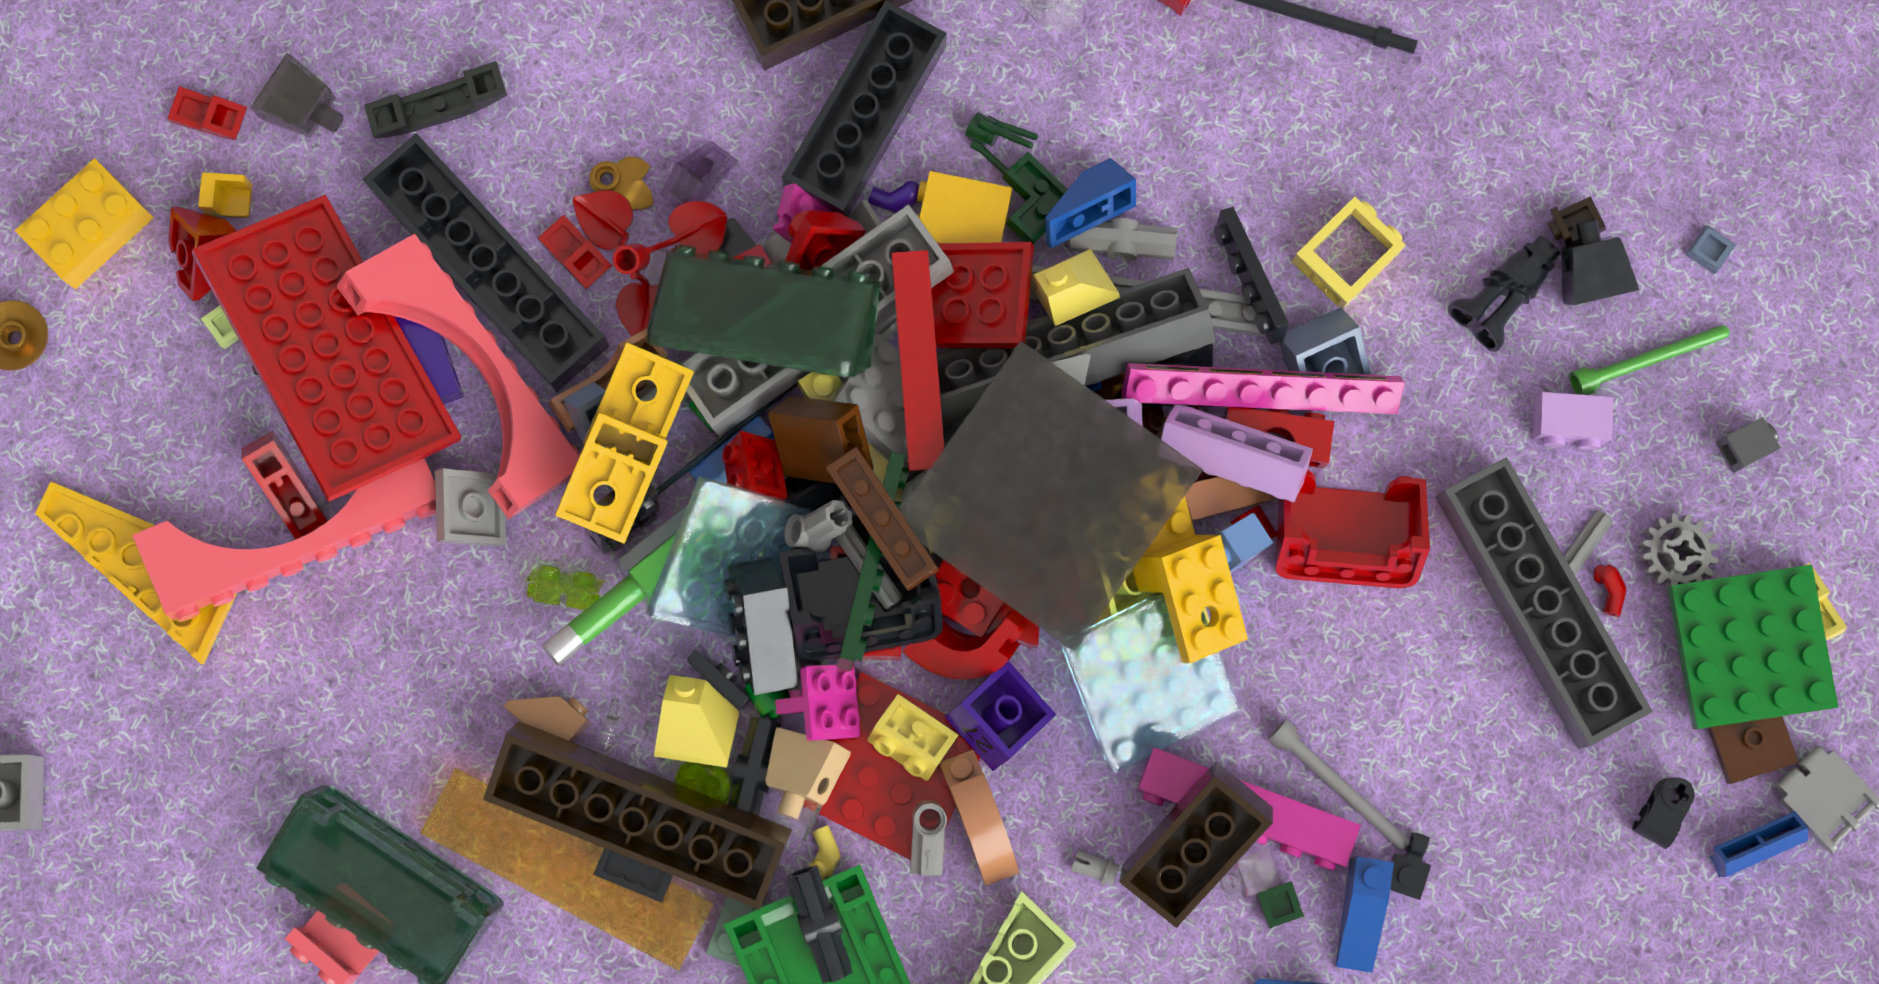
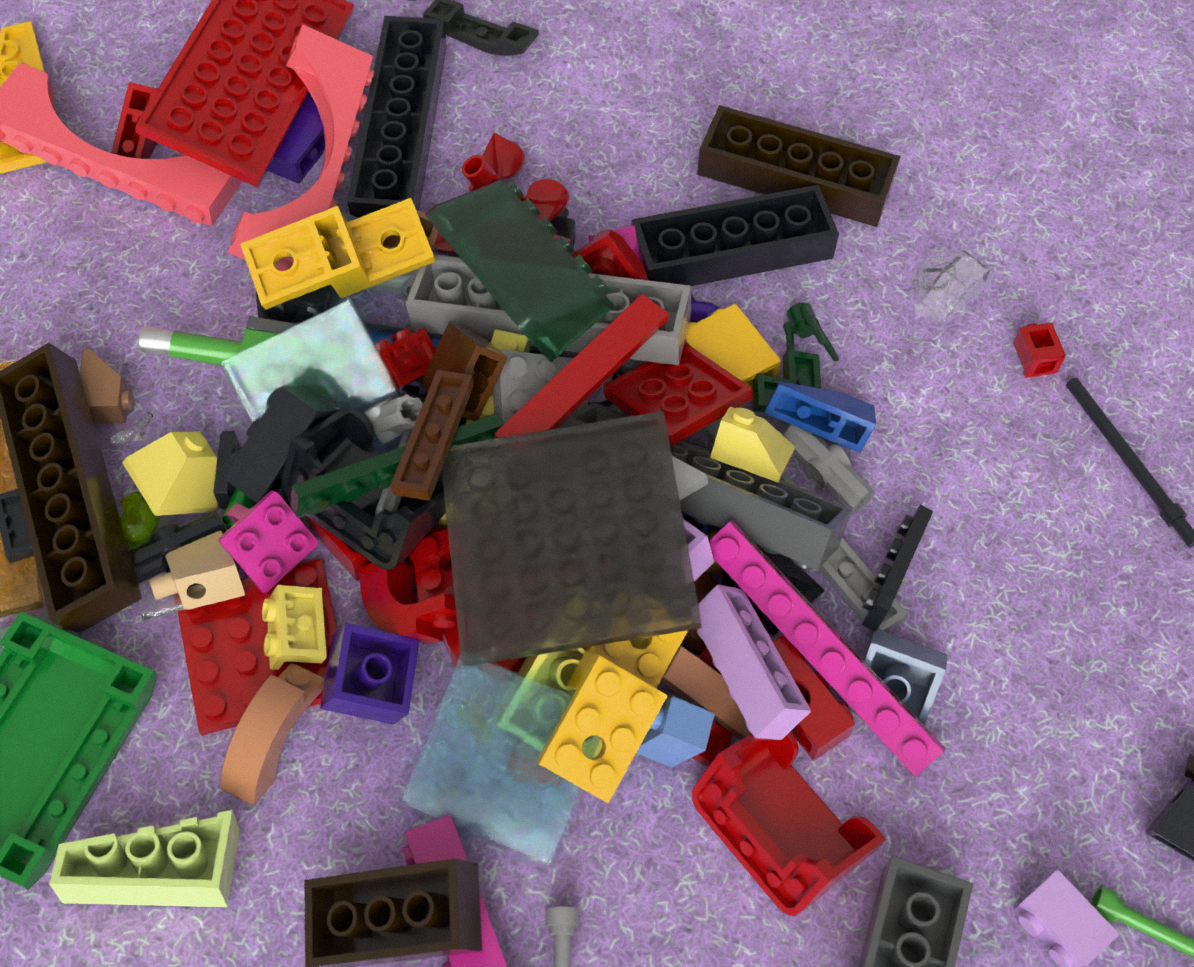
camera: 50 degrees right, 20 degrees down
(467, 510) = (210, 228): light grey plate -> none
(551, 583) = (207, 319): clear neon green hinge -> none
(574, 252) = (456, 154): red slope -> none
(626, 180) = (537, 156): pearl gold plate -> none
(698, 175) = (586, 186): clear purple slope -> none
(819, 924) = (74, 677): black piece -> none
(828, 853) = (152, 653): light yellow arm -> none
(927, 842) = (216, 705): light grey piece -> none
(1097, 867) = (310, 862): light grey pin -> none
(1324, 276) = (964, 654): light yellow window -> none
(1517, 280) = (1116, 772): black piece -> none

